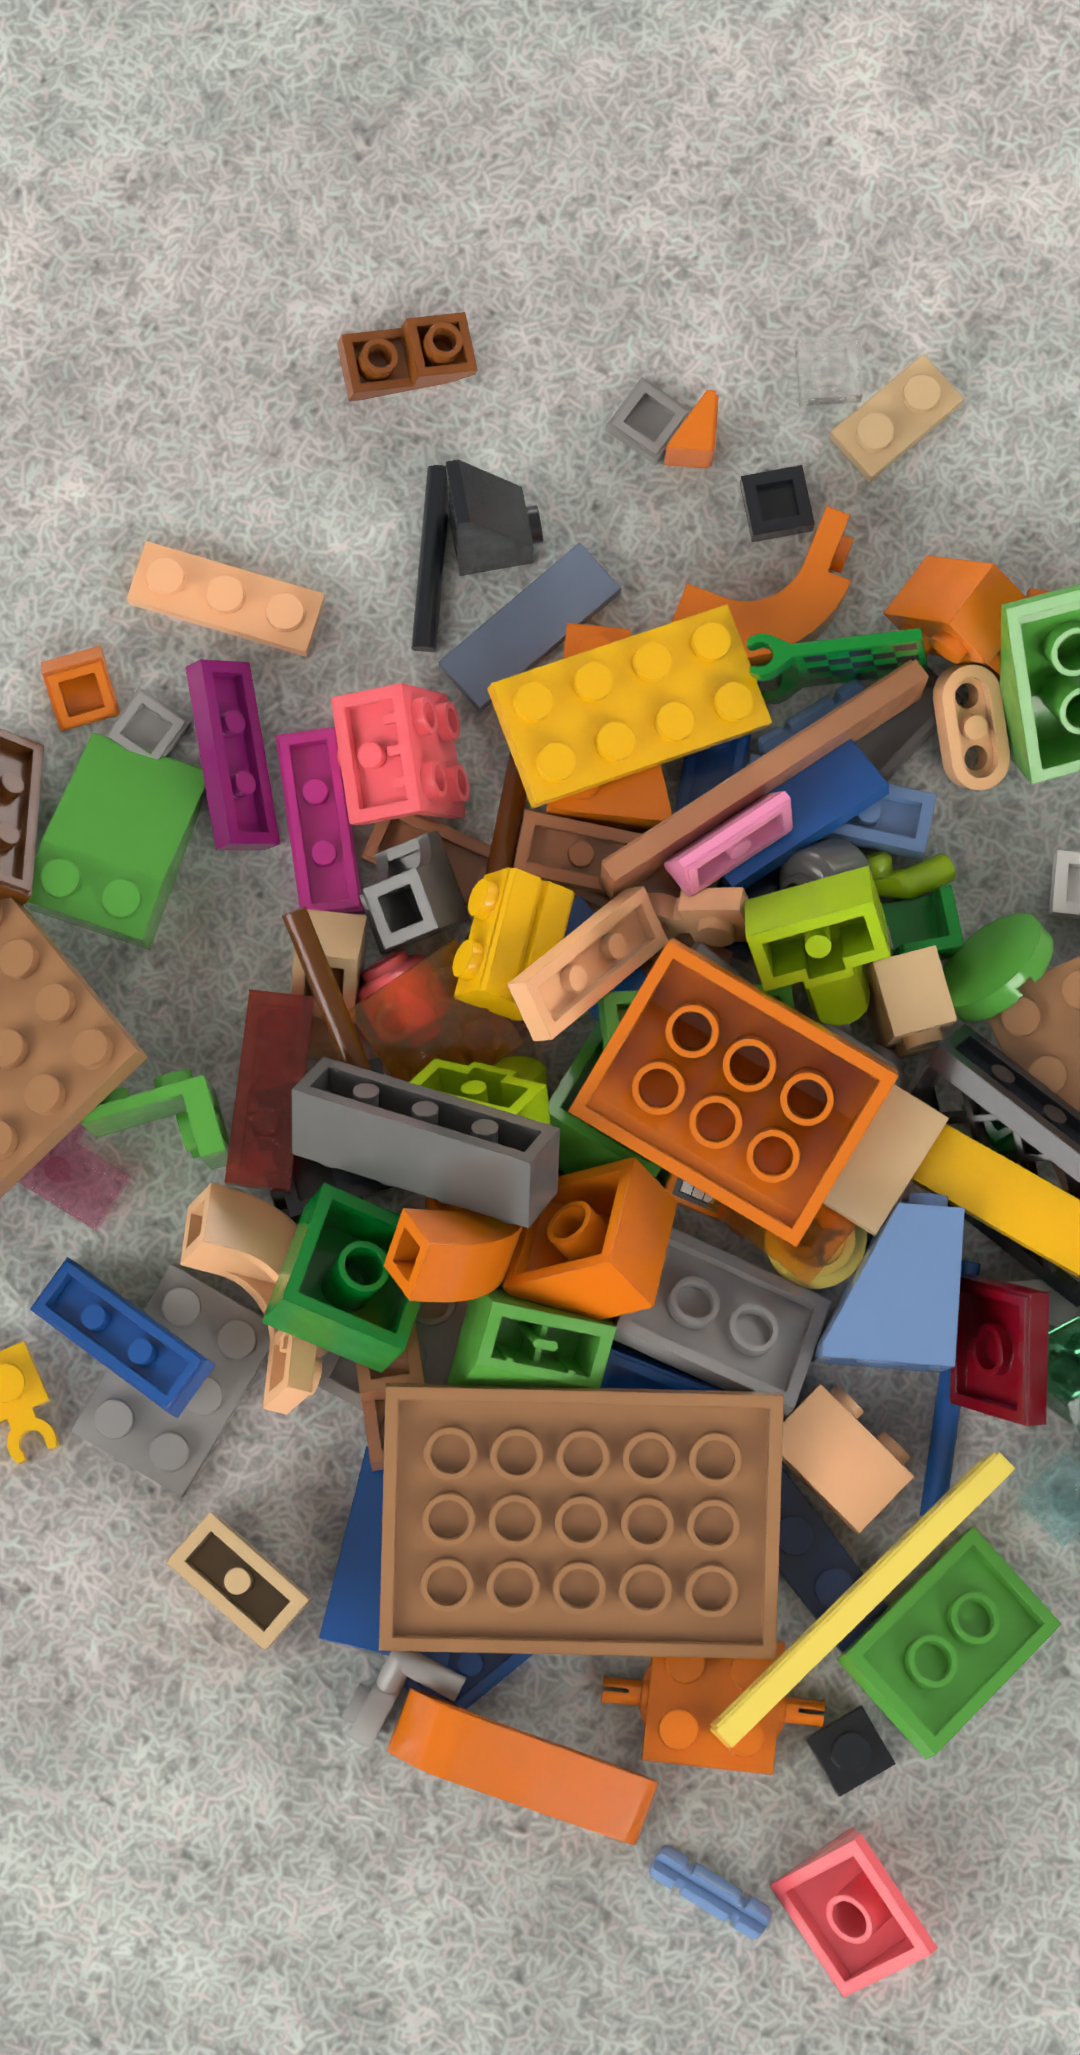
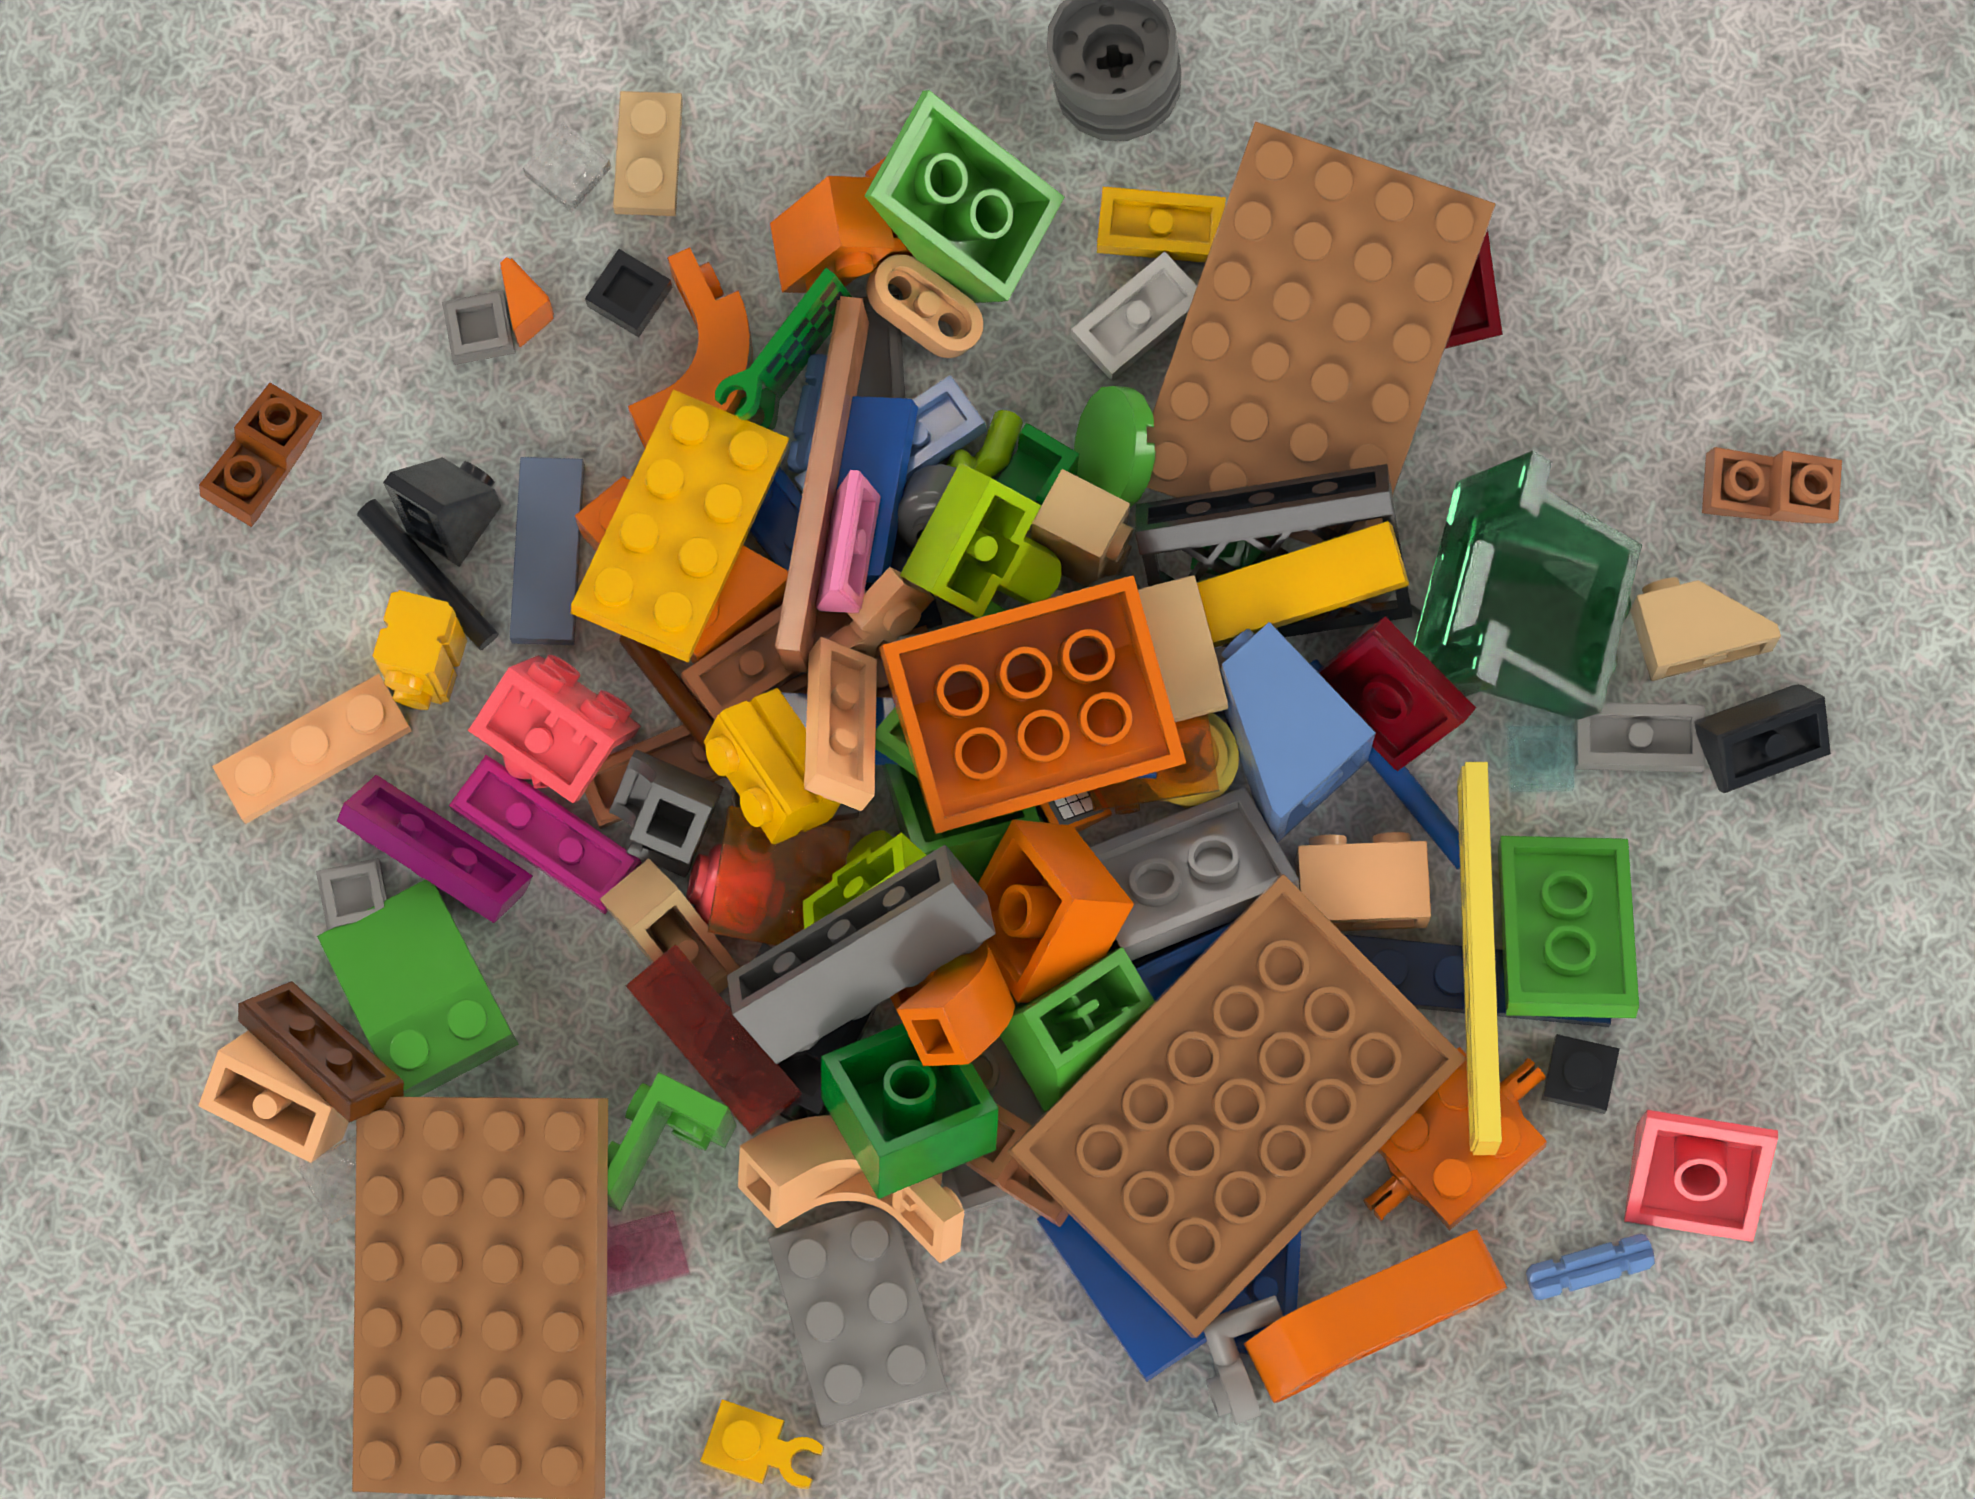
camera: 40 degrees left, 5 degrees down
(80, 688) = (274, 915): orange slope -> none
(122, 1337) = (789, 1320): blue tile -> none
(239, 1580) = (1050, 1396): tan brick -> none
(325, 988) = (675, 929): reddish brown bar -> none
(362, 606) = (419, 649): none -> yellow brick

